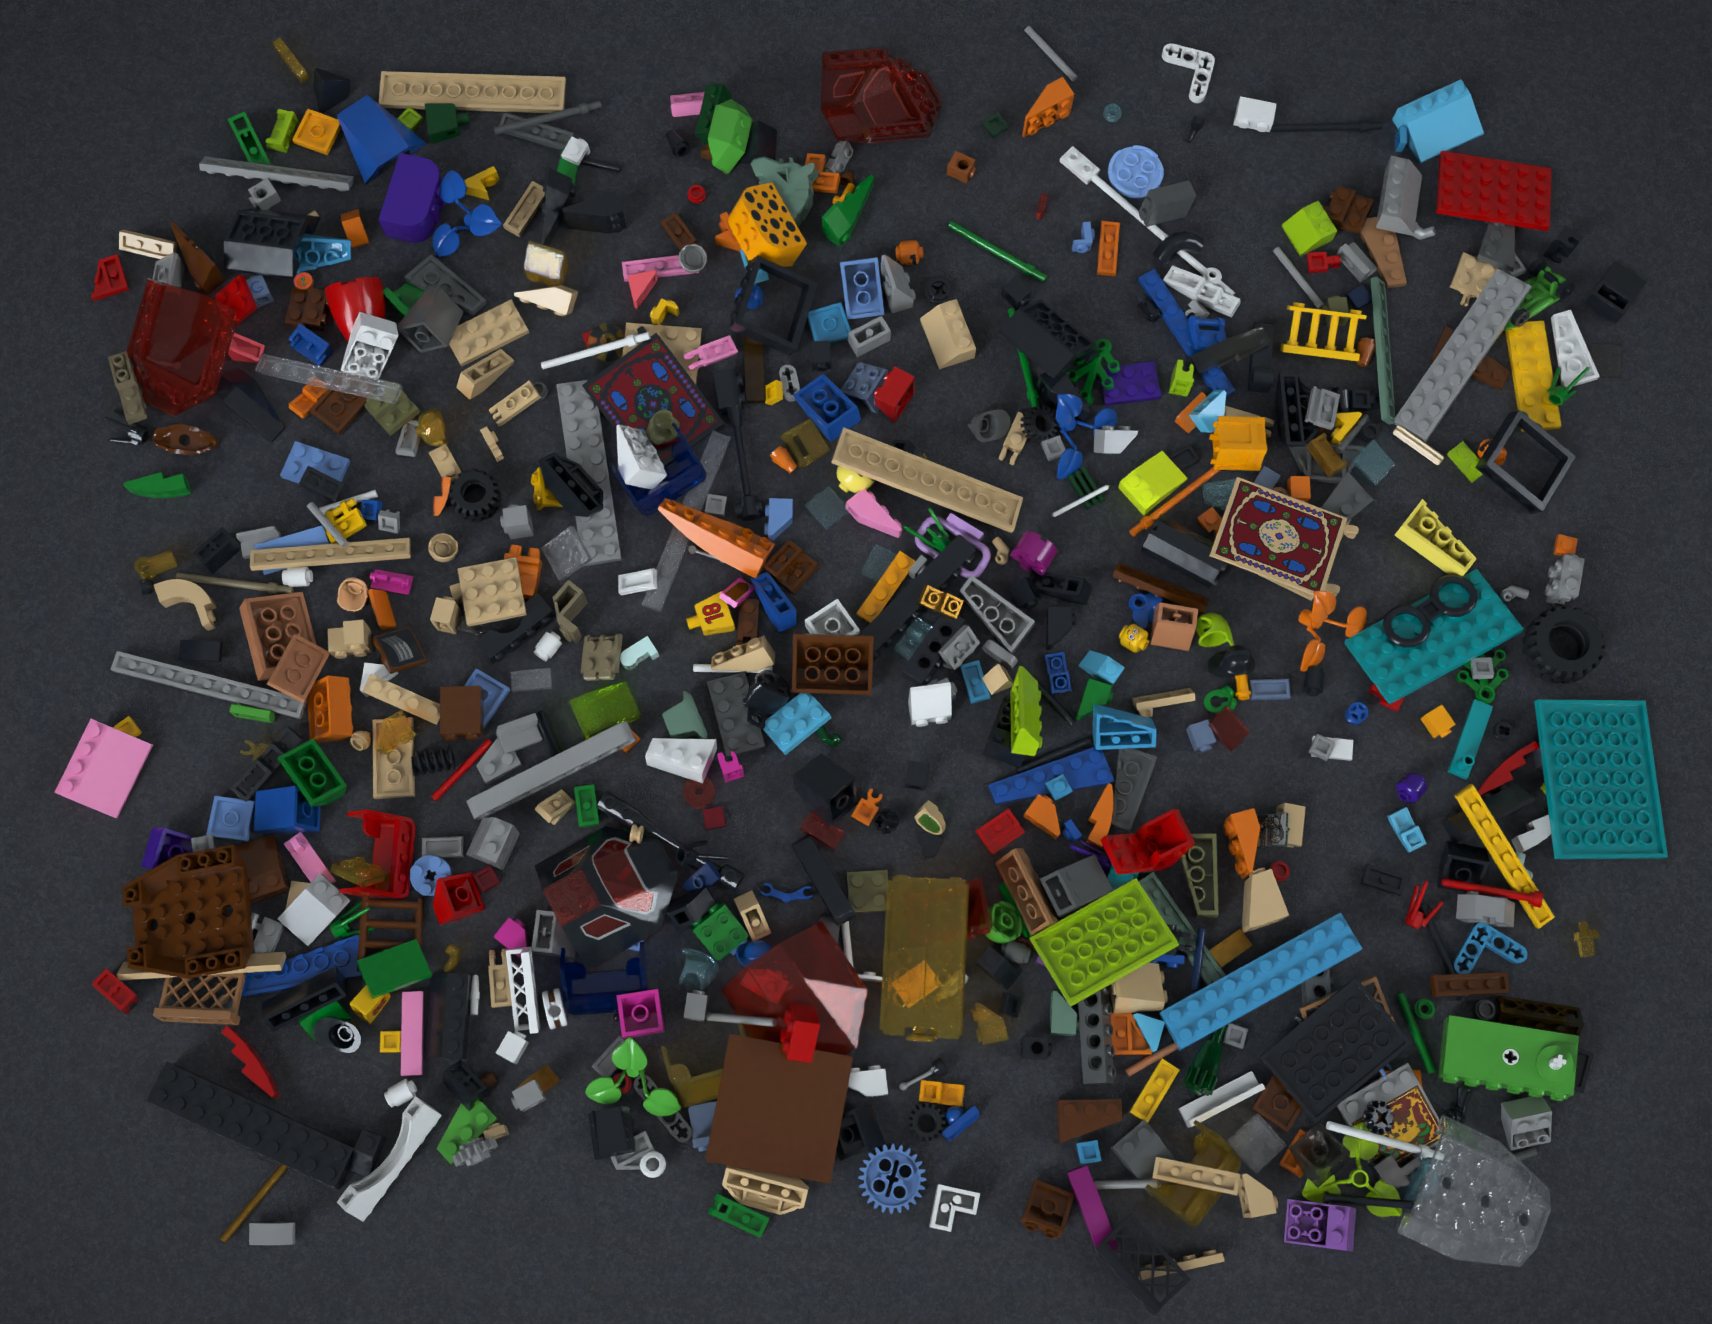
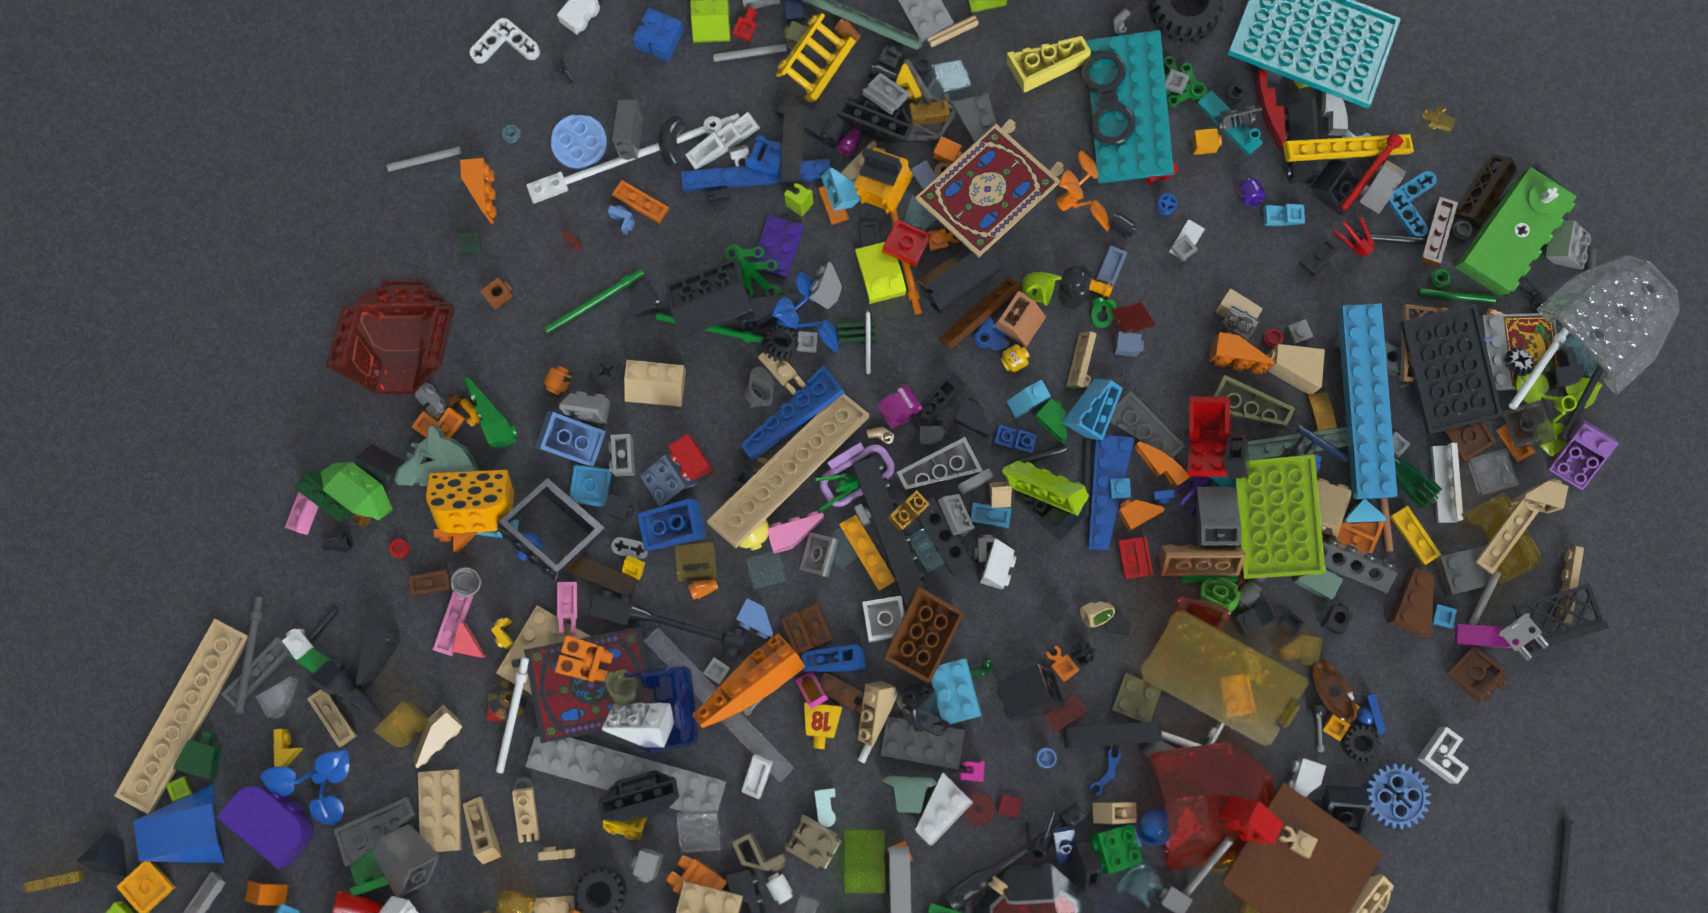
camera: 60 degrees left, 5 degrees up
(522, 158) = (278, 698): none -> clear slope
(674, 390) = (588, 662): none -> orange hips
(773, 830) = (1045, 758): none -> medium blue wheel
(803, 1096) = (1300, 842): none -> tan plate
(863, 547) = (819, 554): none -> light grey slope
(973, 1060) = (1341, 706): none -> reddish brown piece
(1010, 478) = (814, 397): none -> blue wing
(1108, 1226) = (1520, 631): none -> light grey piece
(1140, 874) = (1237, 457): none -> black slope
(1191, 491) = (906, 242): none -> red tile
(1247, 429) = (880, 167): none -> black panel
(1259, 400) = (848, 144): none -> magenta cone
(1272, 191) = (659, 31): none -> blue piece
(1298, 894) = (1299, 331): none -> light grey plate
(1484, 747) = (1243, 117): none -> dark grey hinge

